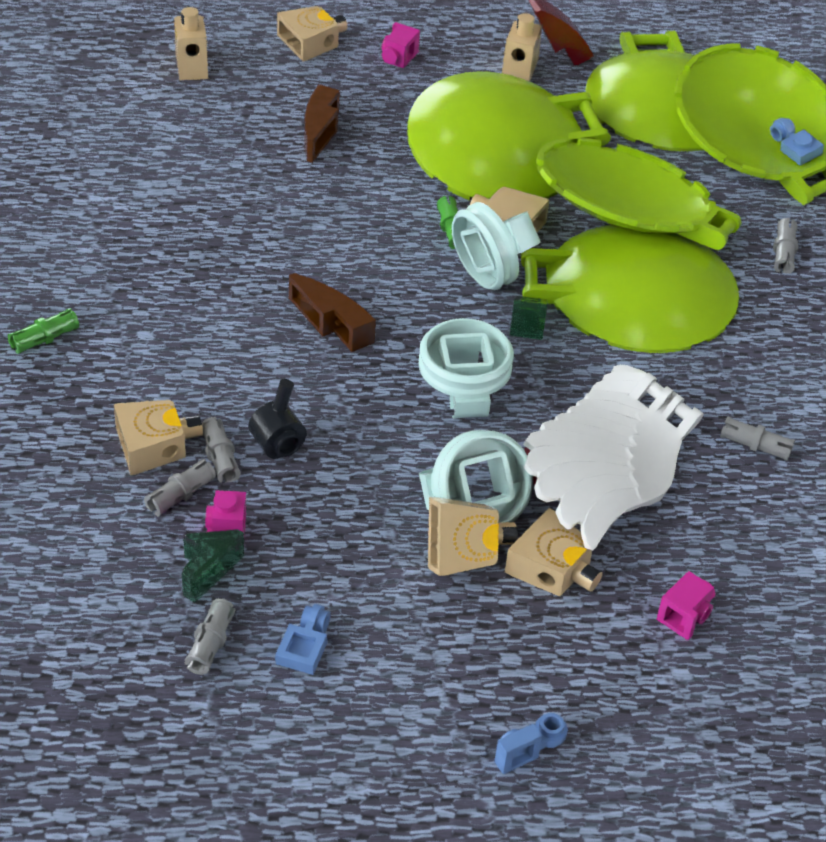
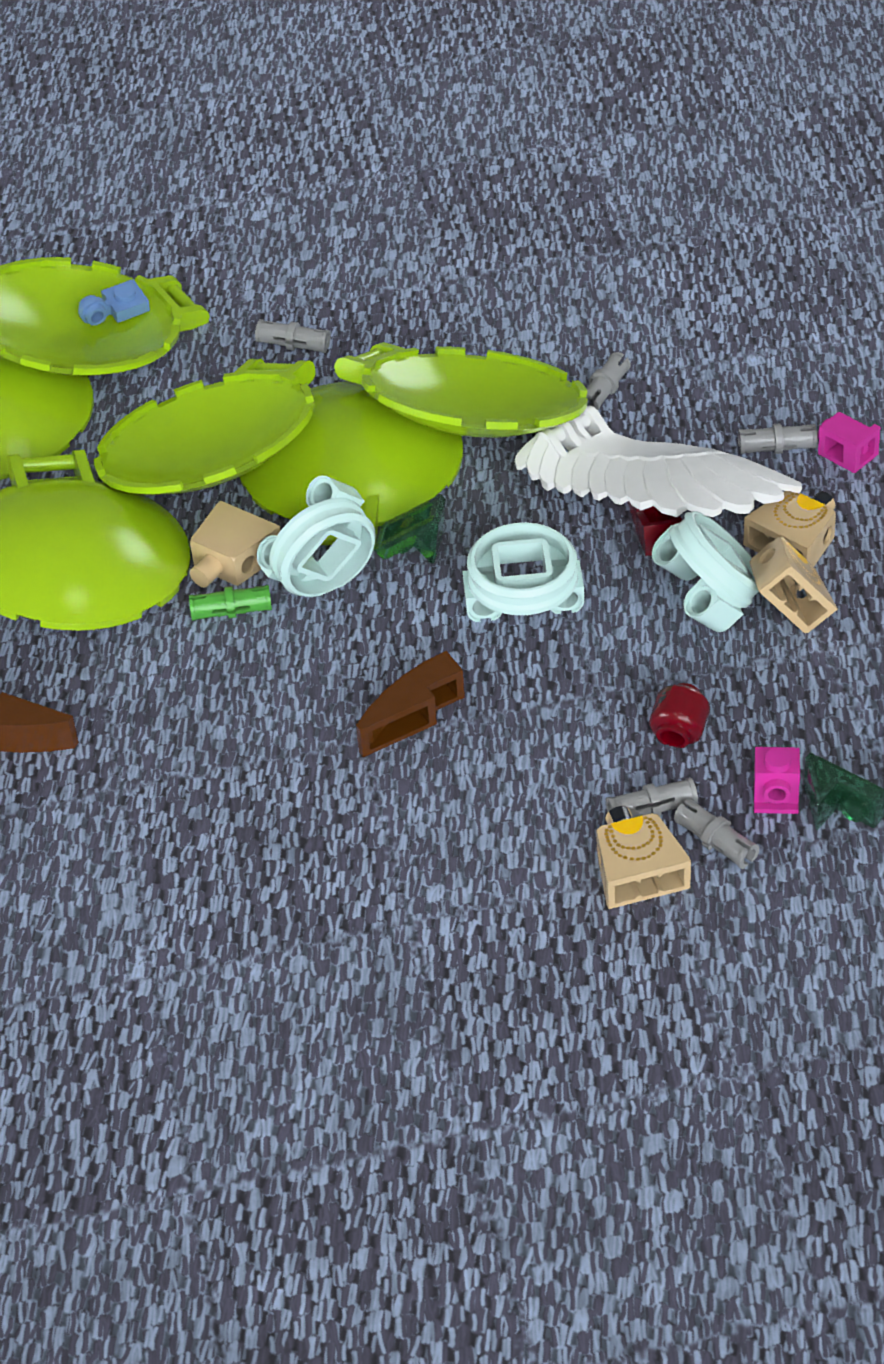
camera: 80 degrees left, 0 degrees up
(43, 330) = (437, 991): bright green pin -> none
(277, 426) = (626, 738): black piece -> none
(311, 466) = (679, 715): none -> dark red head
(691, 554) = (777, 438): none -> light grey pin
(700, 330) = (467, 392): none -> lime dish

